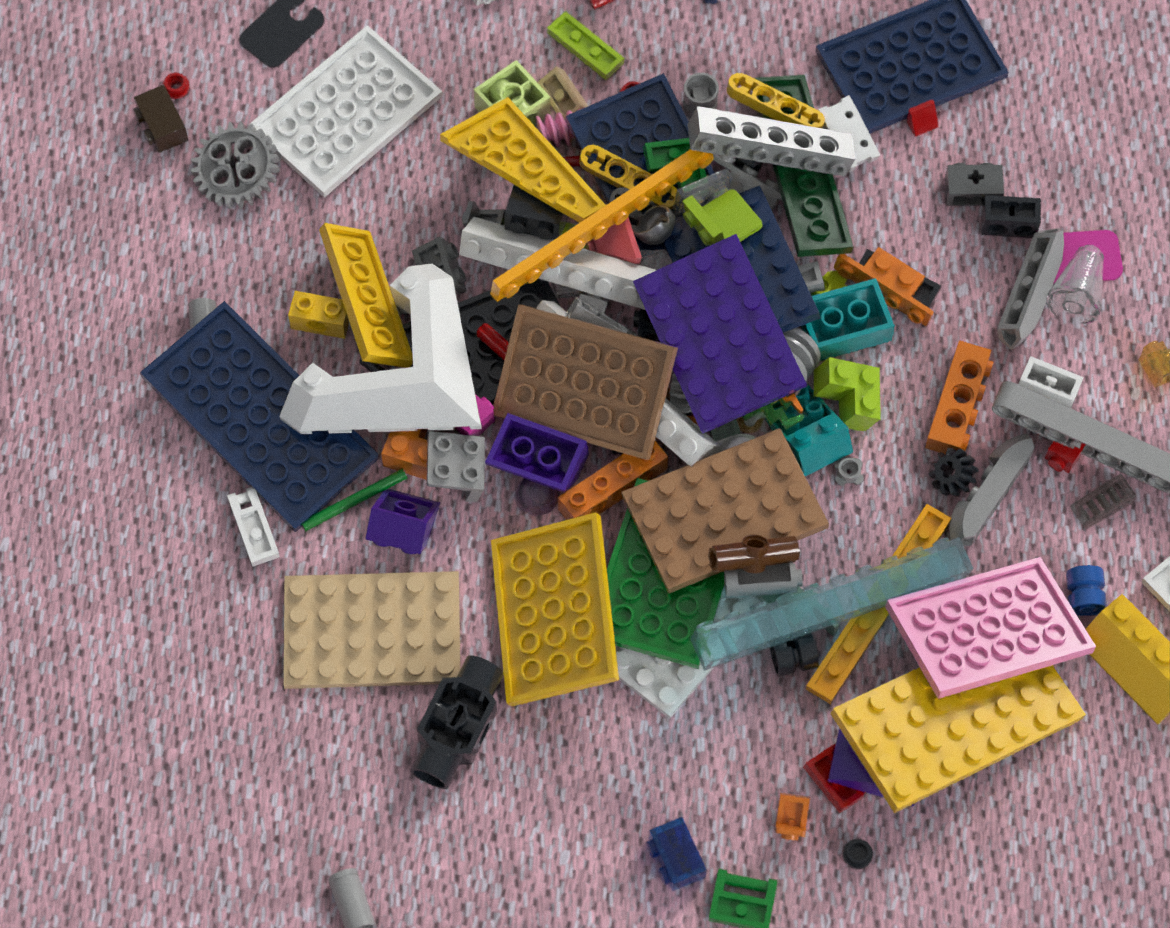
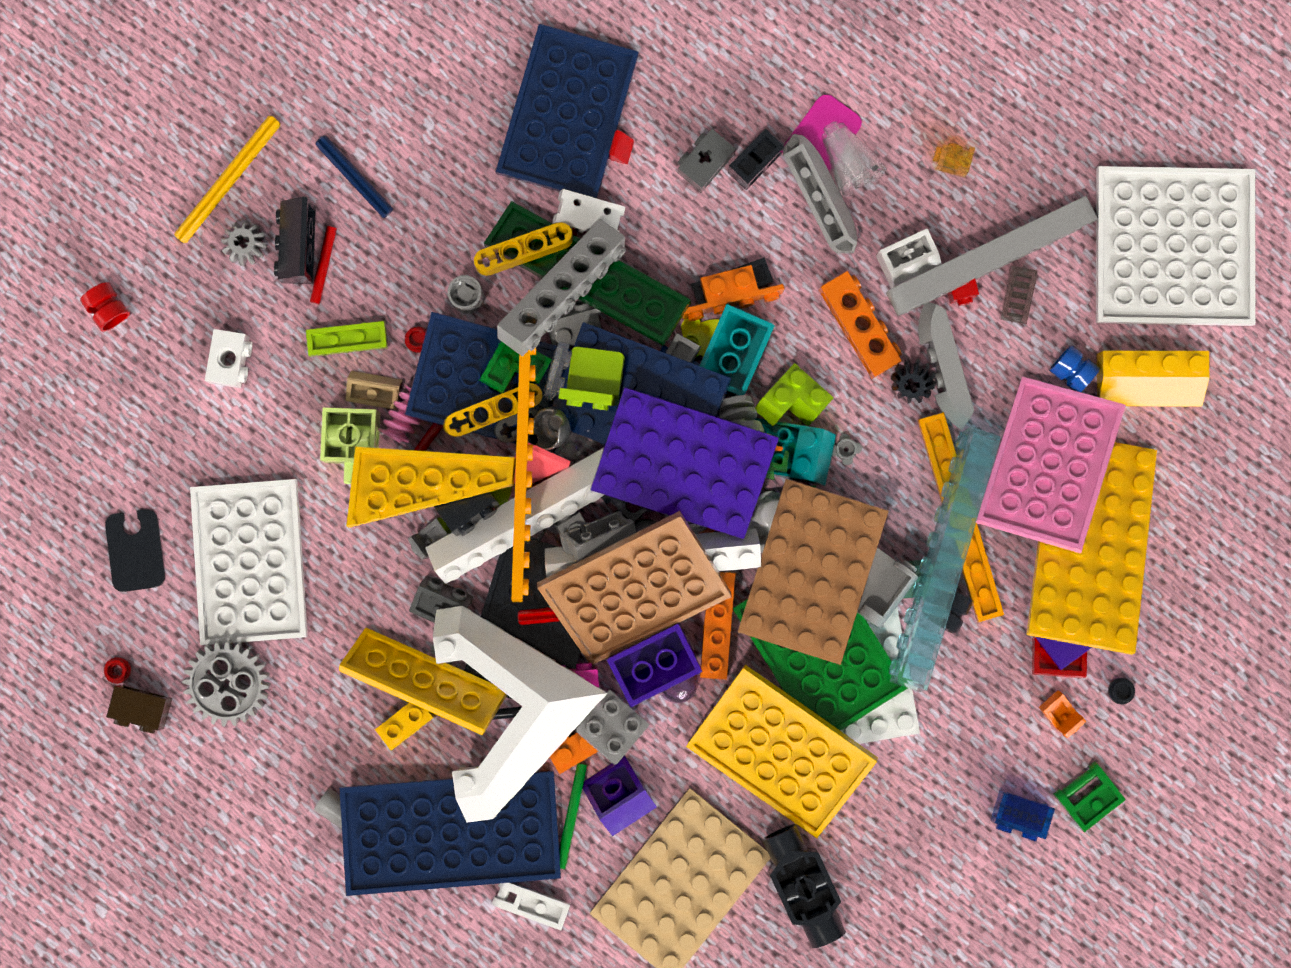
camera: 50 degrees left, 20 degrees up
(754, 553) = (865, 599): reddish brown piece -> none

